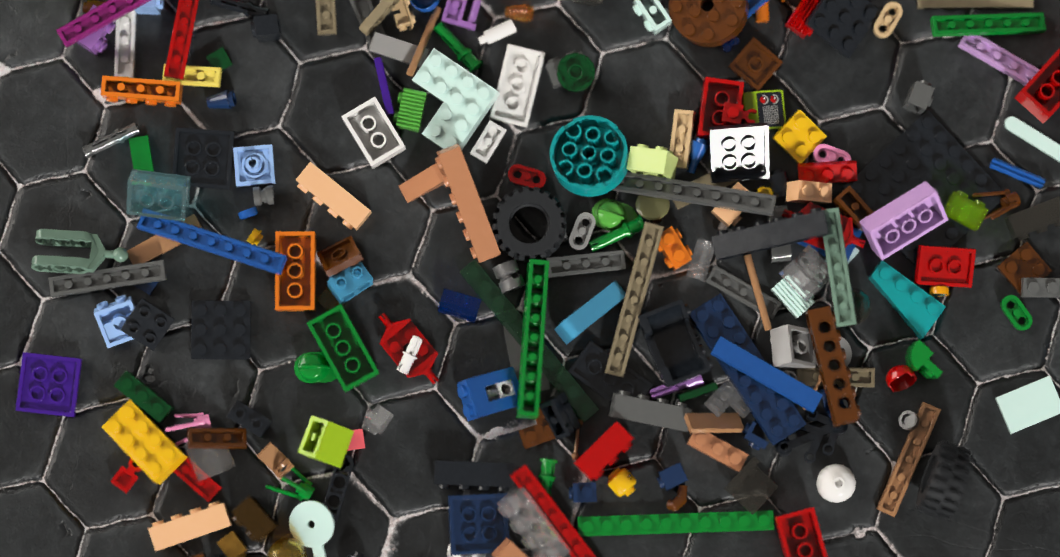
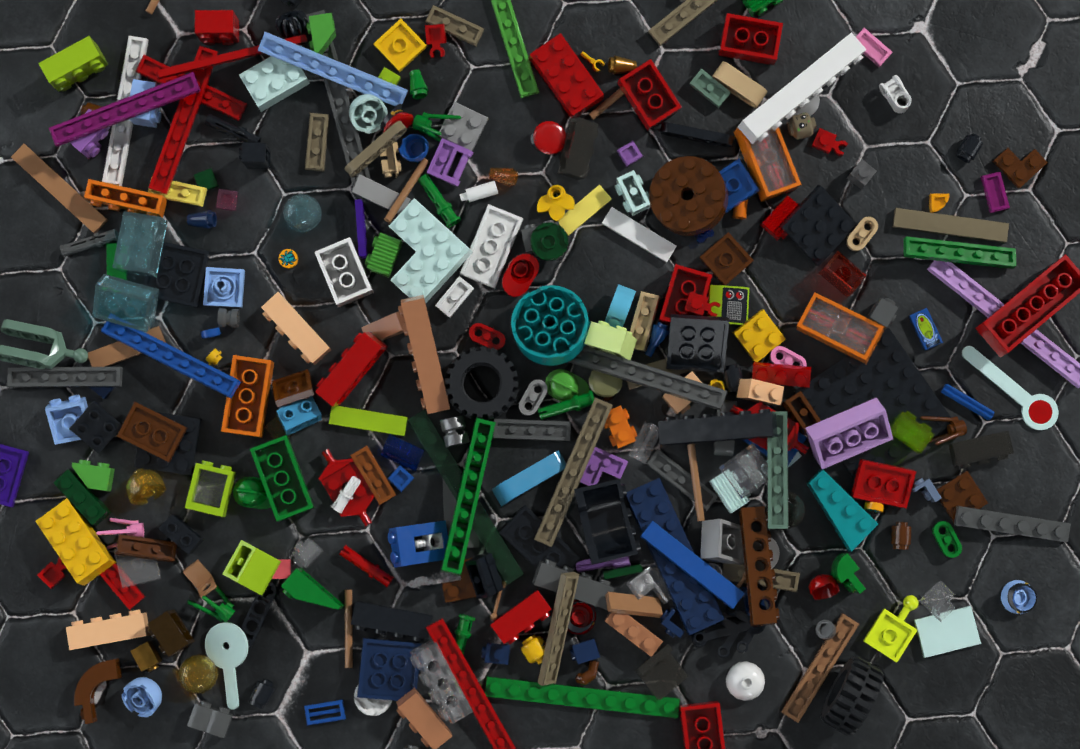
camera: 15 degrees right, 0 degrees up
(71, 89) = (59, 188): none -> medium nougat tile
(153, 374) = (95, 477): none -> bright green slope
(164, 133) = (140, 244): none -> clear light blue brick
(205, 320) = (152, 432): none -> reddish brown plate
(205, 375) = (144, 485): none -> clear yellow cylinder
(243, 76) = (227, 200): none -> clear pink plate
(272, 367) = (211, 487): none -> window
(314, 127) = (288, 258): none -> tile
(322, 79) = (302, 213): none -> clear light blue cylinder
(382, 454) = (306, 588): none -> green slope
(396, 228) = (351, 369): none -> red brick
(419, 278) = (368, 420): none -> lime tile
(431, 489) = (348, 629): none -> medium nougat bar
(433, 332) = (373, 475): none -> dark orange plate
(440, 424) = (373, 570): none -> red pin
(461, 331) = (400, 478): none -> blue tile
(551, 109) = (520, 274): none -> red piece
(576, 35) = (555, 205): none -> yellow plate
(605, 35) = (584, 209): none -> light yellow tile
(642, 457) = (558, 628): none -> dark tan tile
(656, 126) = (620, 306): none -> medium azure brick
(660, 444) = (582, 618): none -> red piece
(662, 285) = (602, 462): none -> medium lavender plate
(664, 52) = (639, 234): none -> white tile
(874, 63) = (842, 274): none -> clear red slope
(879, 117) = (840, 328): none -> clear brick
(964, 106) = (925, 329): none -> tile
(970, 316) = (901, 536): none -> reddish brown brick
(974, 414) = (891, 633): none -> neon yellow plate
(992, 267) = (929, 490): none -> sand blue bracket
(1016, 375) = (938, 601): none -> clear brick

